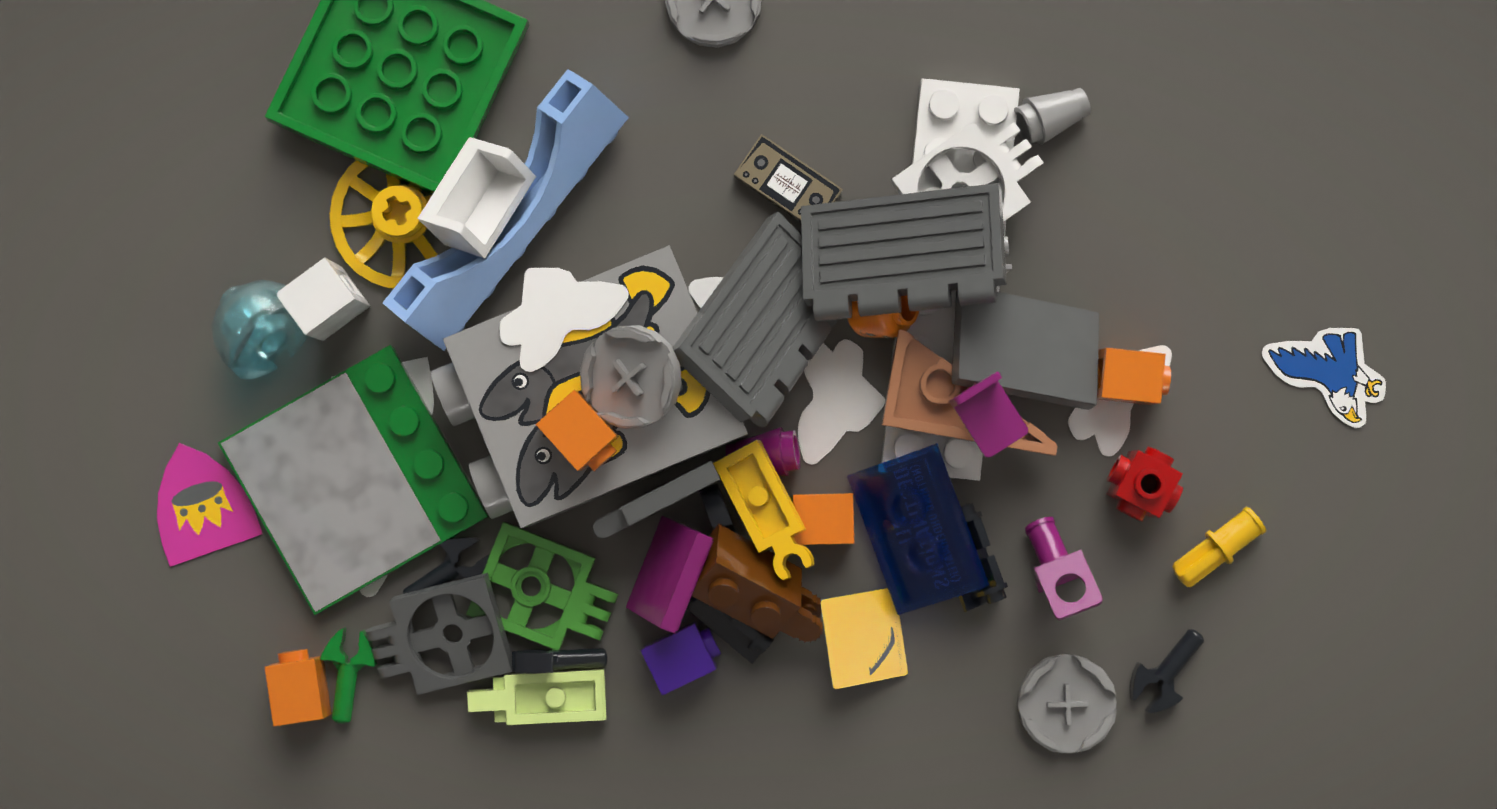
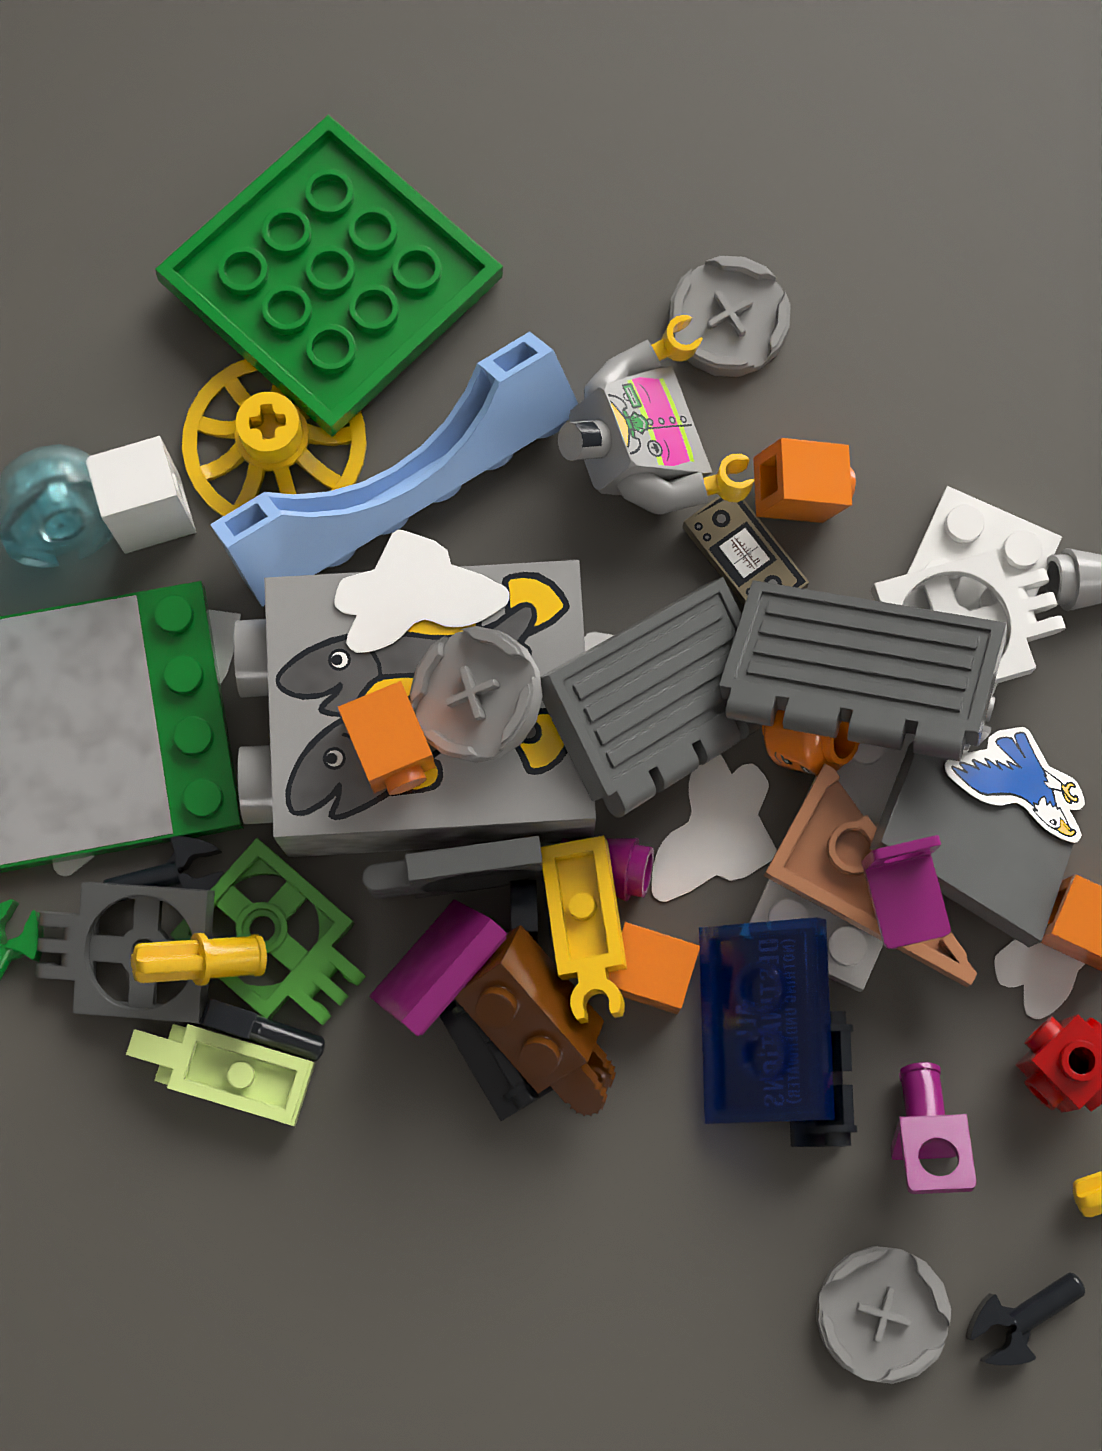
camera: 20 degrees right, 10 degrees down
(477, 197) = (368, 439): white panel -> none
(497, 628) = (199, 959): none -> yellow axle
(680, 122) = (641, 433): none -> light grey torso
(681, 657) = (415, 1079): dark purple brick -> none
(813, 114) = (803, 480): none -> orange brick
(863, 638) = (651, 1137): yellow sticker -> none
(1043, 283) = (1018, 773): none -> sticker

